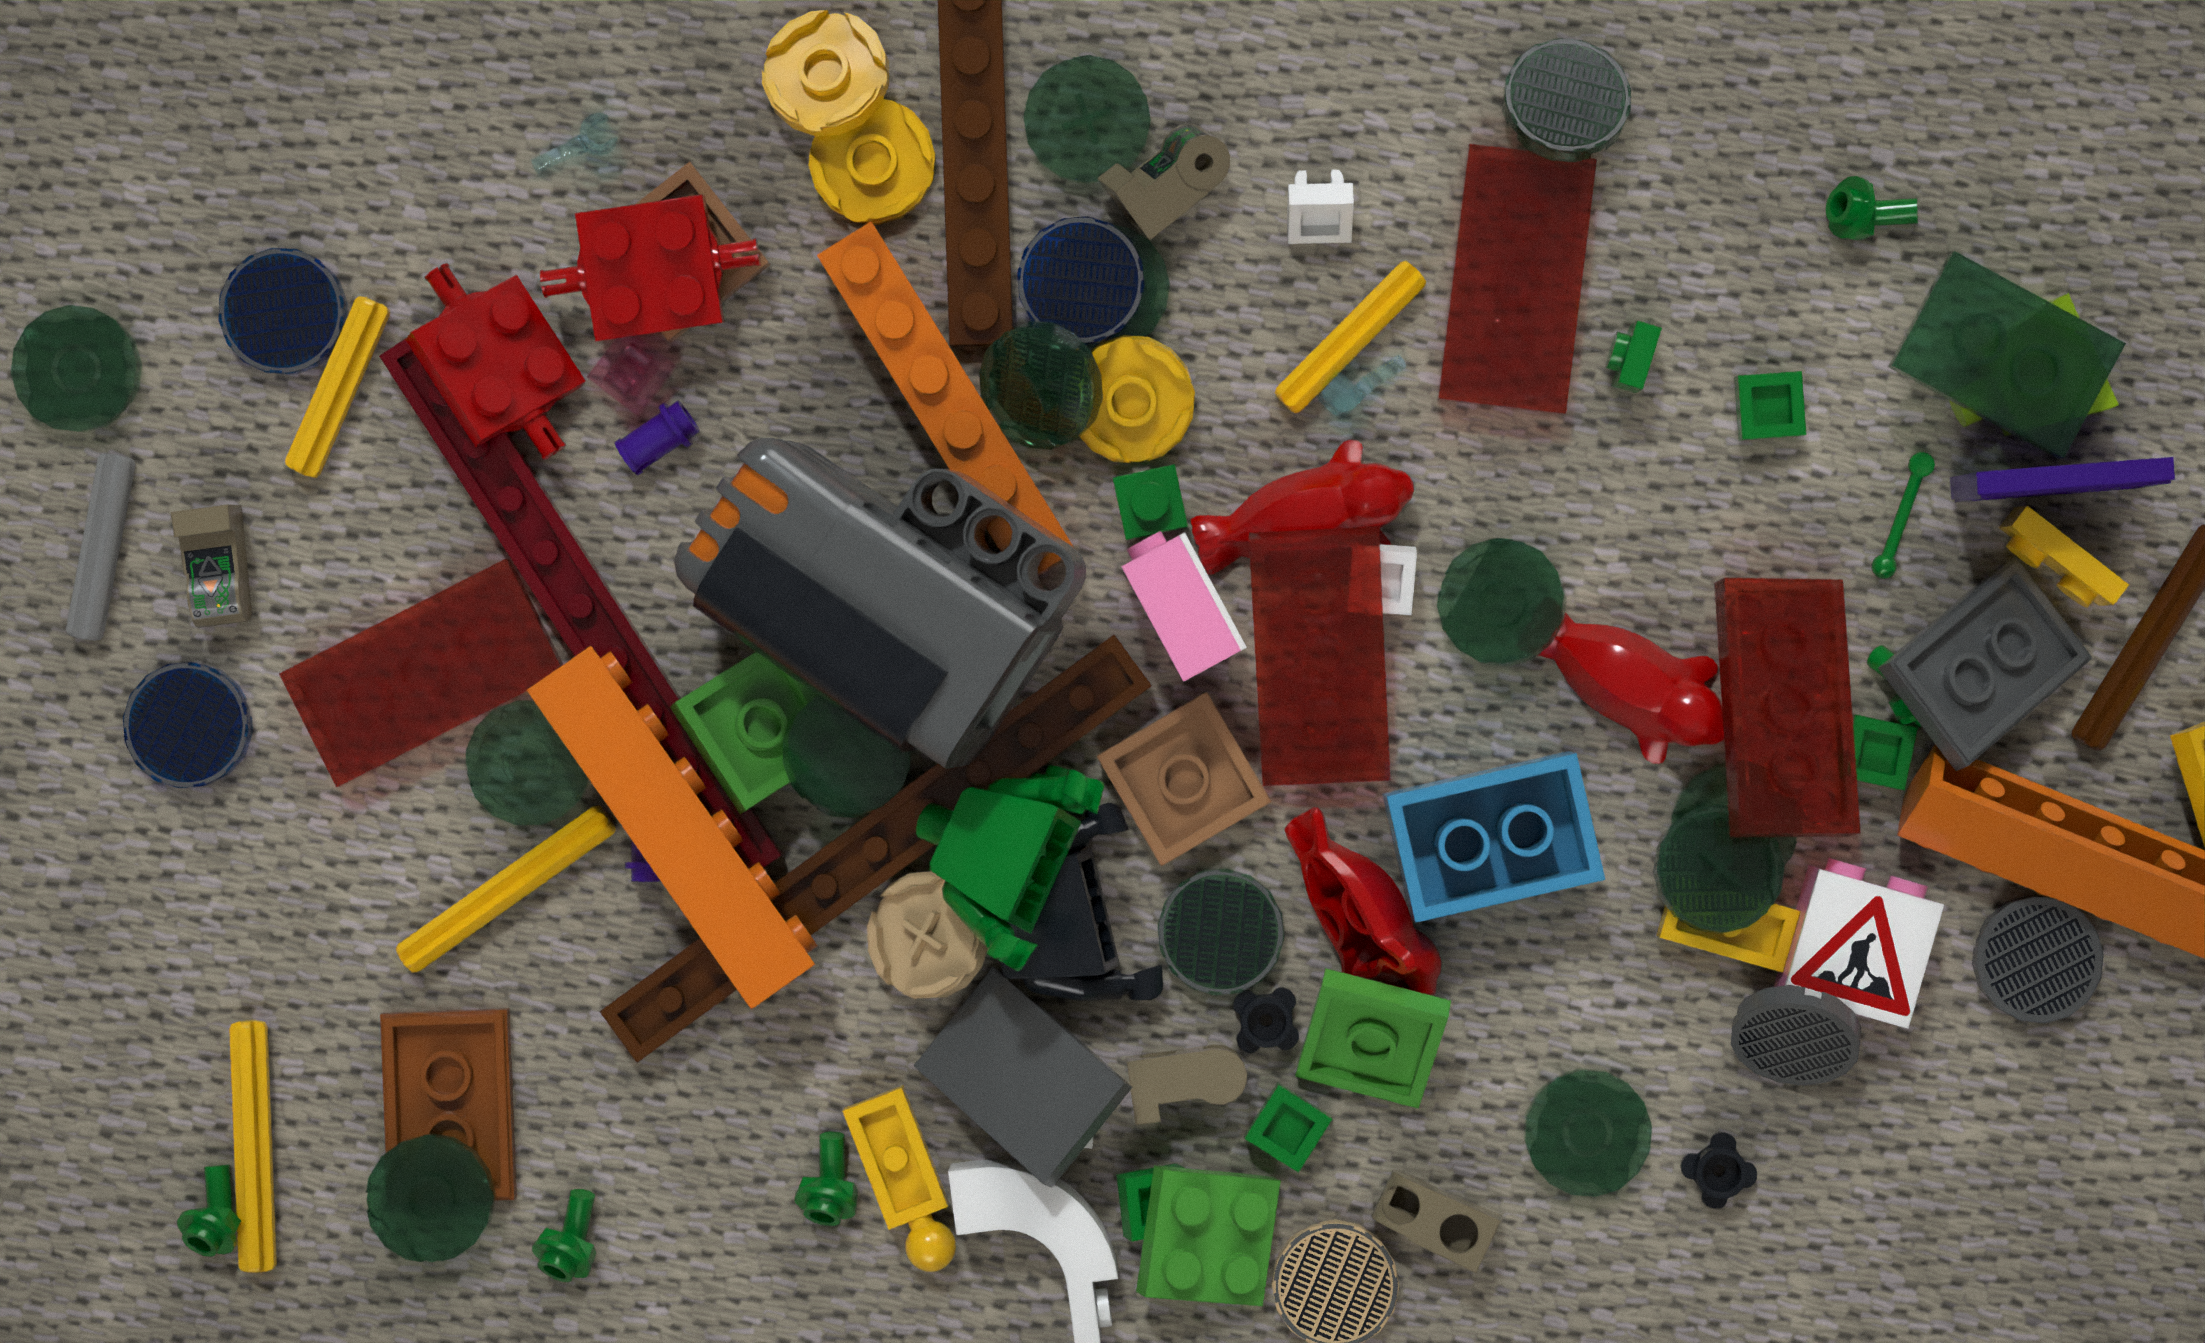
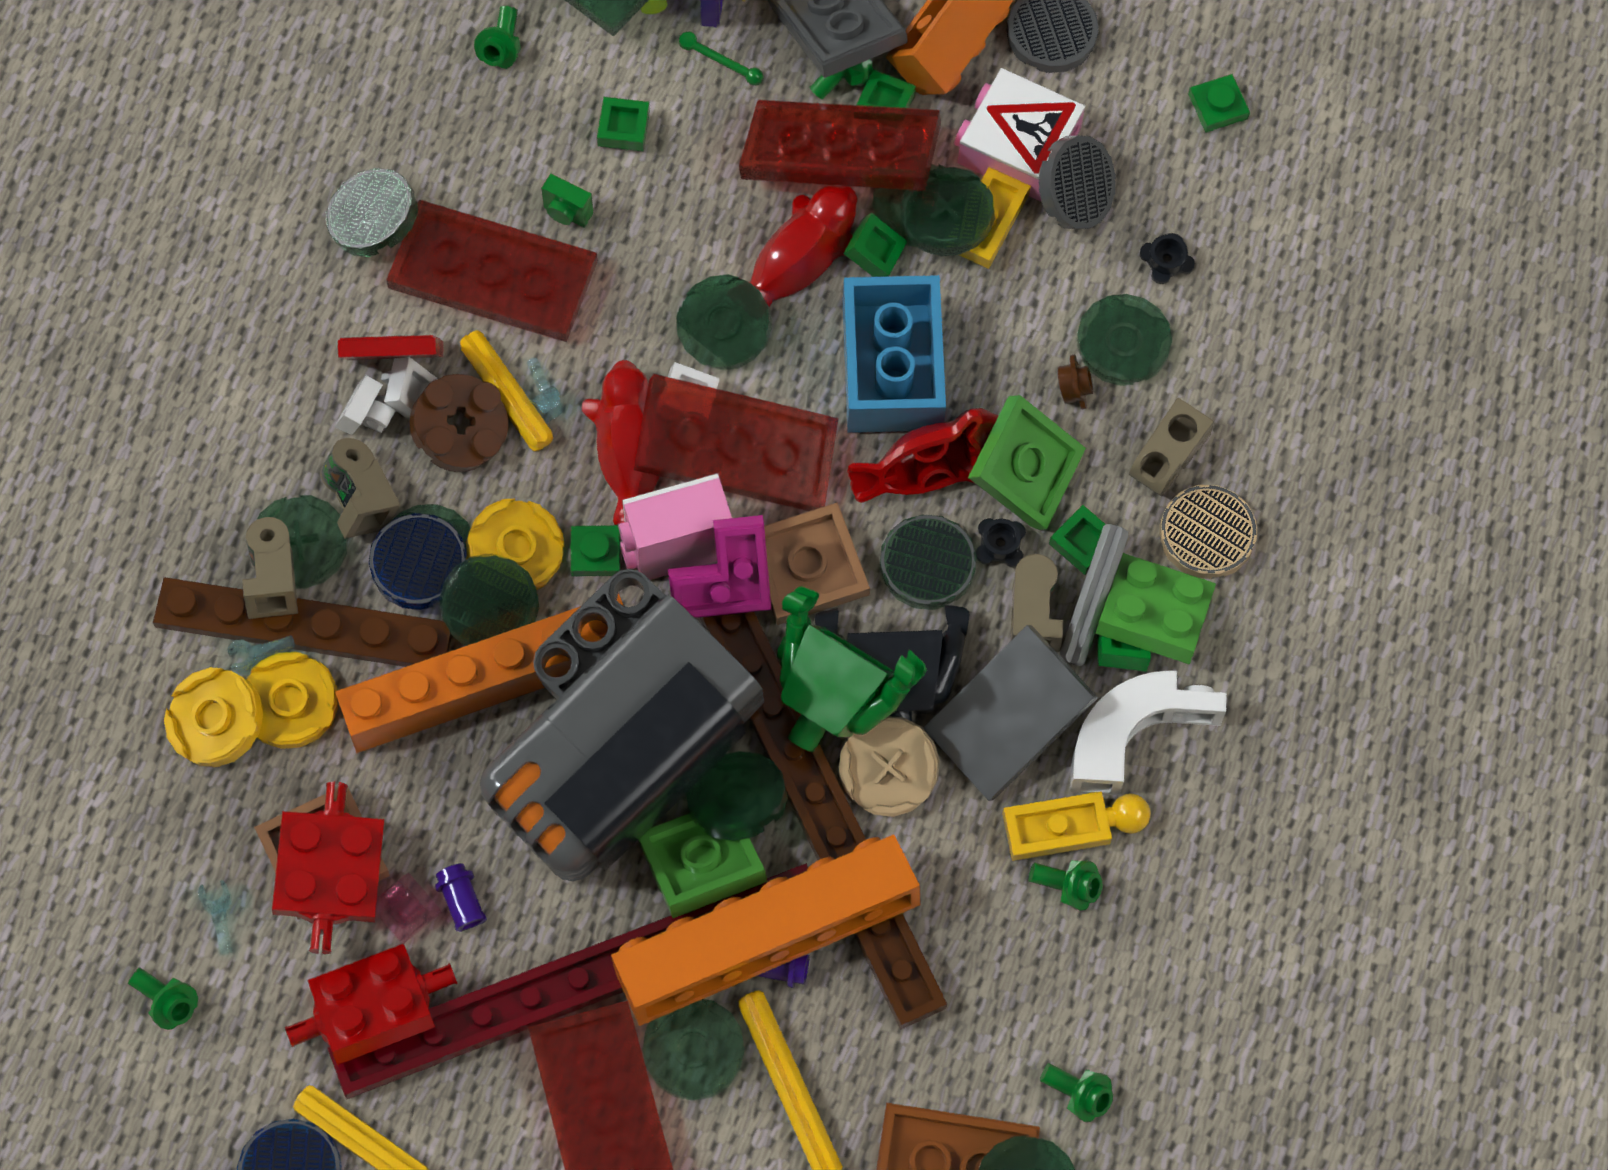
camera: 75 degrees left, 20 degrees down
(458, 117) = (167, 999): none -> green plate
(925, 110) = (256, 652): none -> clear light blue hand
(1024, 101) = (272, 557): none -> dark tan leg
(1119, 695) = (738, 579): none -> dark pink tile
(1210, 1154) = (1094, 594): none -> light grey axle
(1282, 155) = (364, 409): none -> white tile
(1306, 258) = (439, 440): none -> reddish brown plate
(1362, 176) = (390, 347): none -> red tile
(1507, 1079) = (1075, 382): none -> reddish brown plate
(1651, 781) = (875, 246): none -> green plate
(1968, 1203) = (1219, 103): none -> green plate

